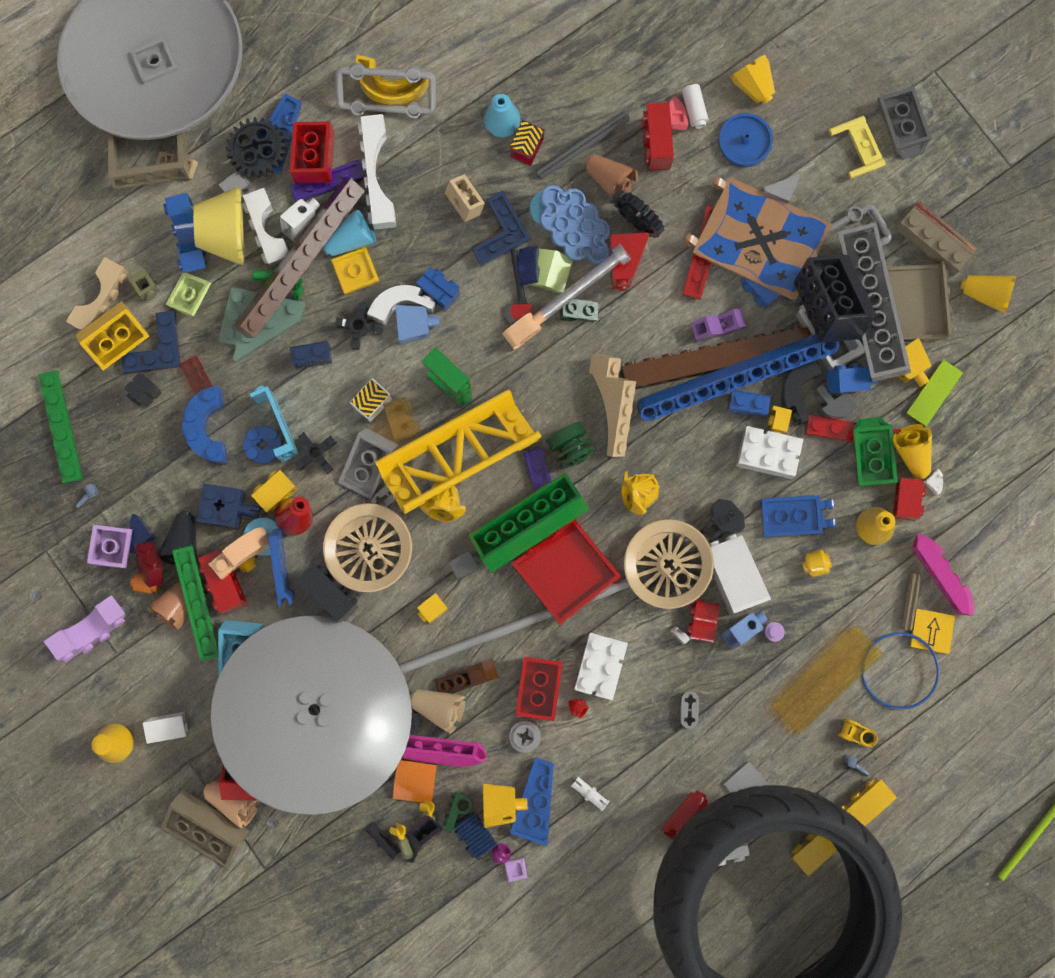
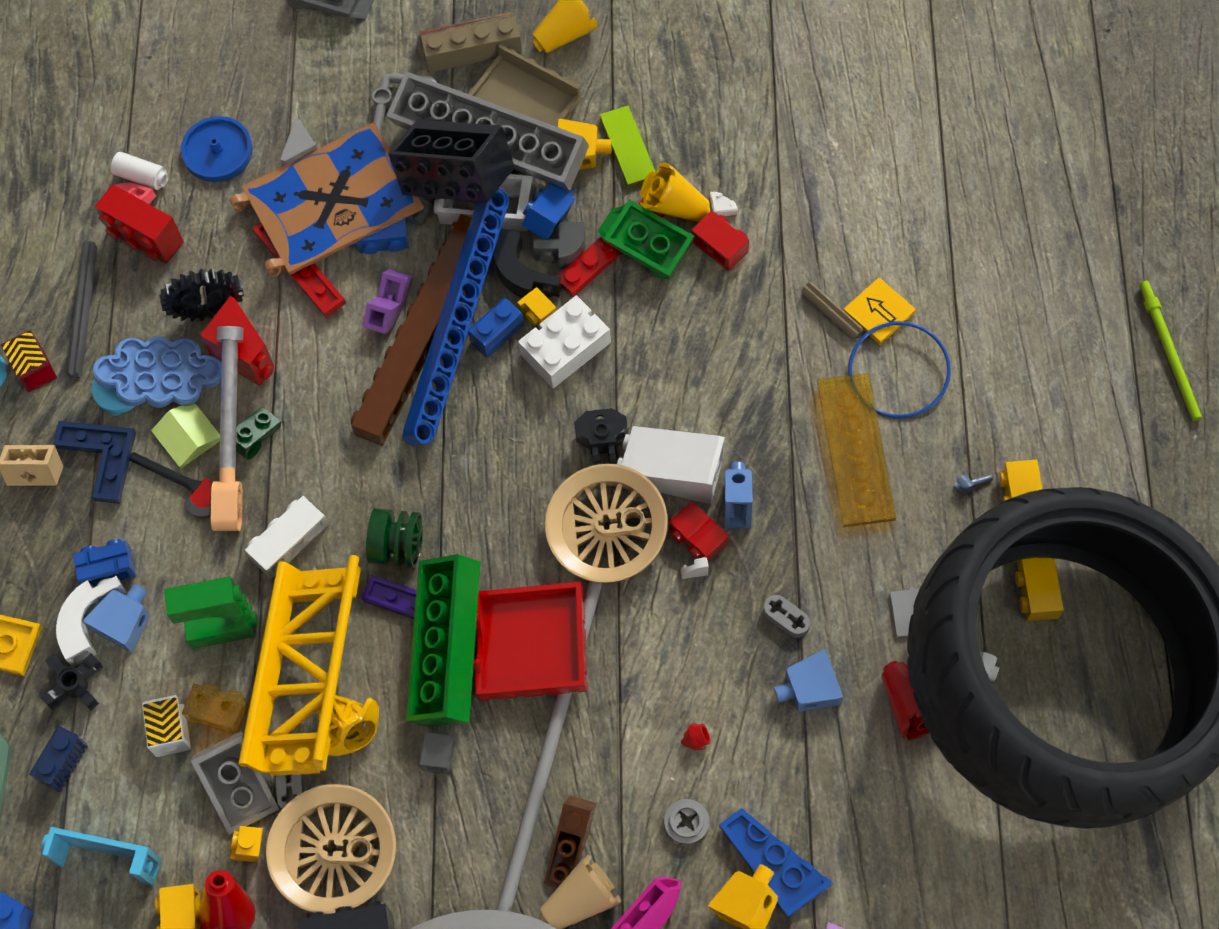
camera: 50 degrees left, 15 degrees down
(254, 437) = (98, 892): blue plate -> none
(307, 459) = (173, 855): black pin -> none
(337, 497) = (246, 844): none -> yellow brick
(431, 609) = (459, 824): yellow brick -> none
(528, 265) = (161, 449): clear blue slope -> none
(528, 380) = (286, 536): none -> white brick
(539, 688) = (642, 763): red brick -> none
(590, 794) = (806, 791): white pin -> none
(600, 666) = (667, 677): white piece -> none
(611, 174) = (136, 299): nougat cone -> none
(617, 398) = (384, 452): tan arch -> none
(642, 492) = (503, 493): yellow piece -> none
(656, 753) = (811, 684): none -> medium blue torso
(756, 80) = (164, 95): yellow cone -> none
(774, 631) = (764, 467): lavender plate -> none
(795, 516) = (653, 363): blue tile -> none
(817, 563) = (721, 373): yellow head -> none
(854, 733) = (935, 459): yellow piece -> none
(864, 145) = (317, 42): light yellow plate -> none
(875, 526) = (725, 287): yellow cone -> none
(938, 568) = (827, 260): dark pink brick -> none

